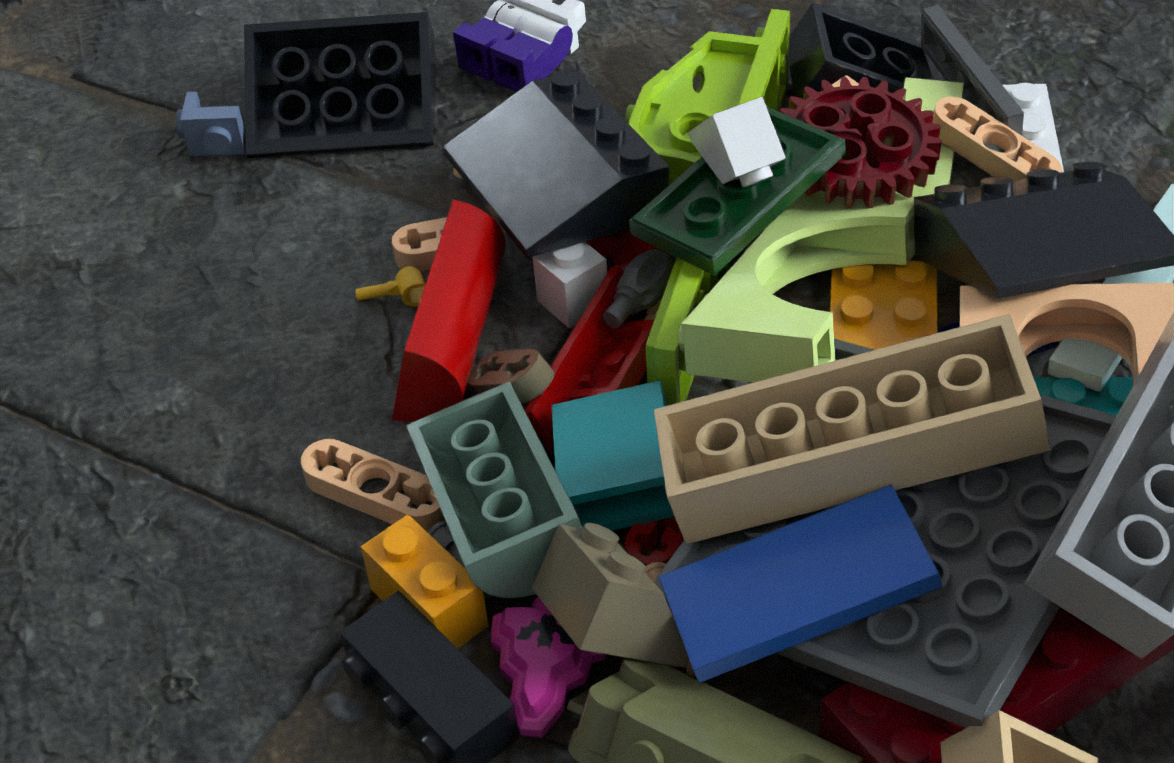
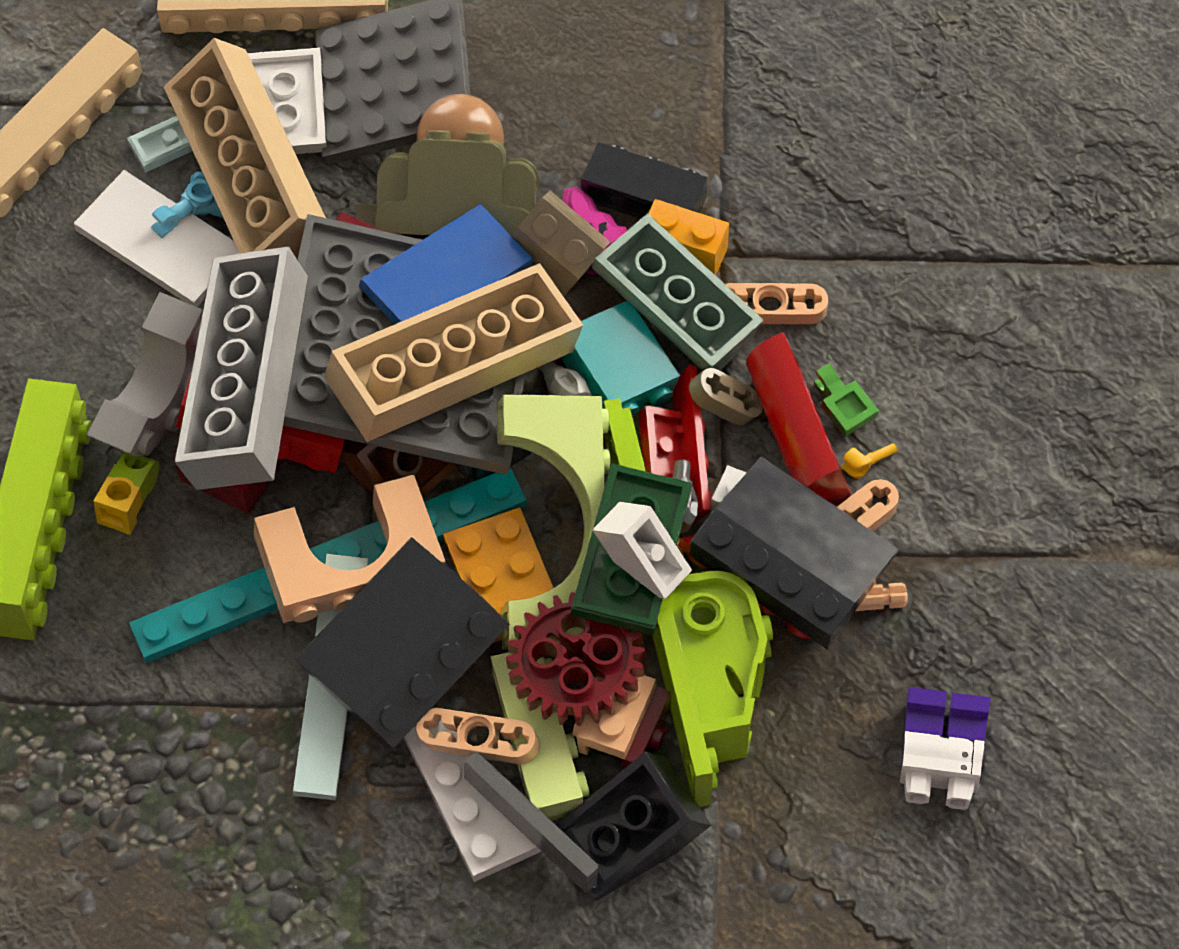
camera: 150 degrees right, 15 degrees up
(210, 128) = (1116, 534): sand blue bracket -> none
(339, 84) = (1053, 624): black slope -> none
(374, 337) = (844, 405): none -> bright green plate

